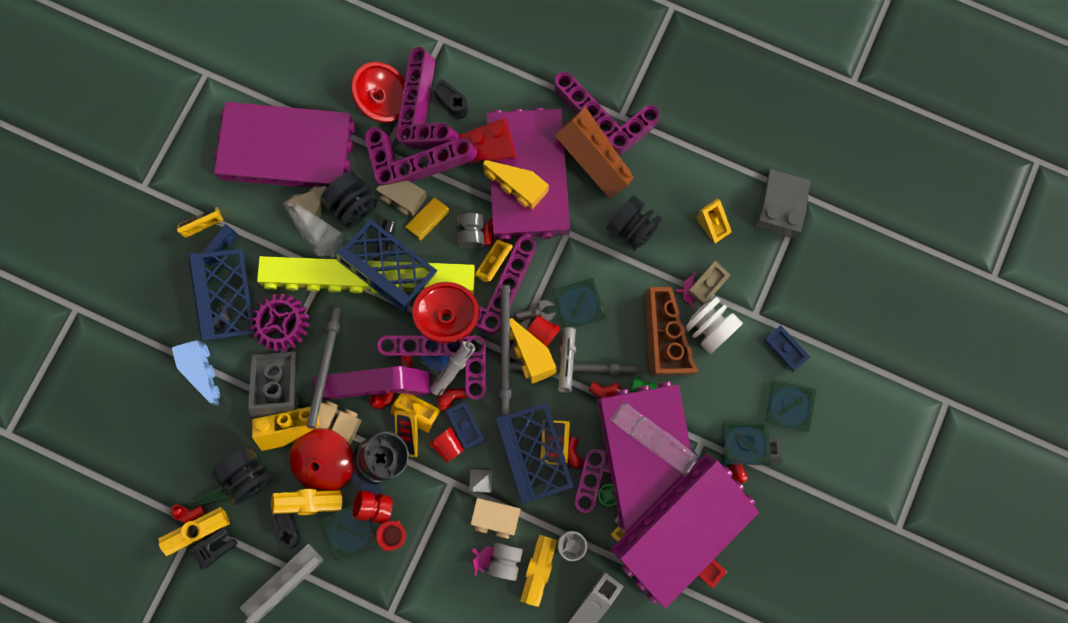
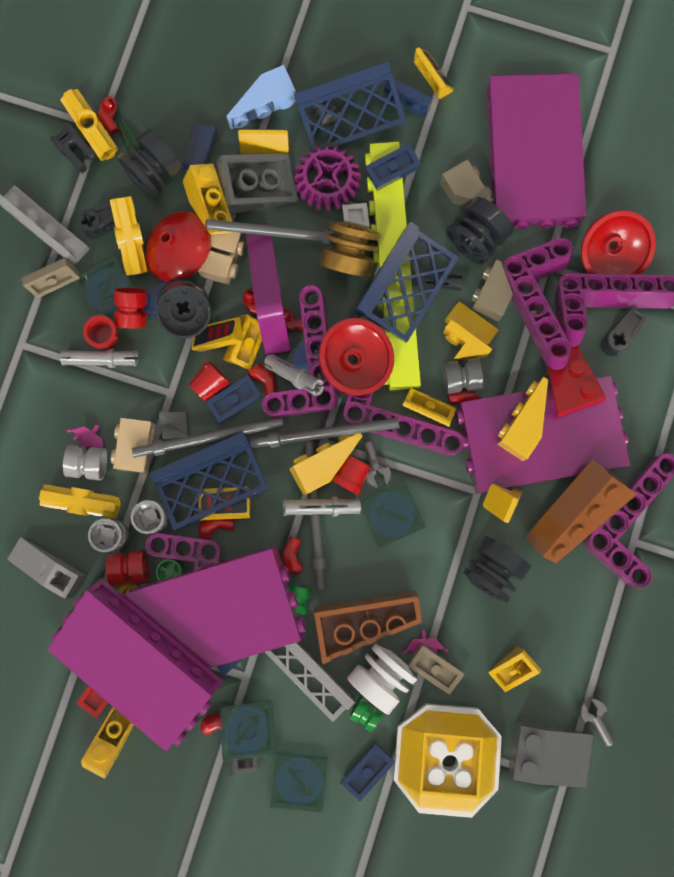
camera: 90 degrees right, 5 degrees up
(232, 433) = (200, 146): none -> dark blue slope
(238, 375) = (263, 142): none -> yellow slope
(282, 263) = (392, 167): none -> dark blue plate
(315, 232) = (434, 199): clear slope -> none
(319, 302) = (356, 213): none -> white plate
(333, 578) = (50, 278): none -> dark tan plate
(345, 306) = (350, 248): none -> pearl gold wheel
(412, 541) = (110, 357): none -> light grey pin
(446, 221) = (471, 345): none -> yellow slope
(500, 491) = (159, 447): none -> dark grey bar
(560, 507) = (149, 517): none -> light grey wheel
(580, 211) = (502, 501): none -> yellow slope
(601, 531) = (127, 568): none -> red wheel
(654, 438) = (231, 617): clear slope -> none
(704, 377) = (320, 673): none -> light grey fence
(740, 343) = (366, 714): none -> green wheel
(748, 563) = (107, 744): none -> yellow slope
(758, 164) = (597, 720): none -> flat silver bar
(774, 303) = (430, 737): none -> yellow piece

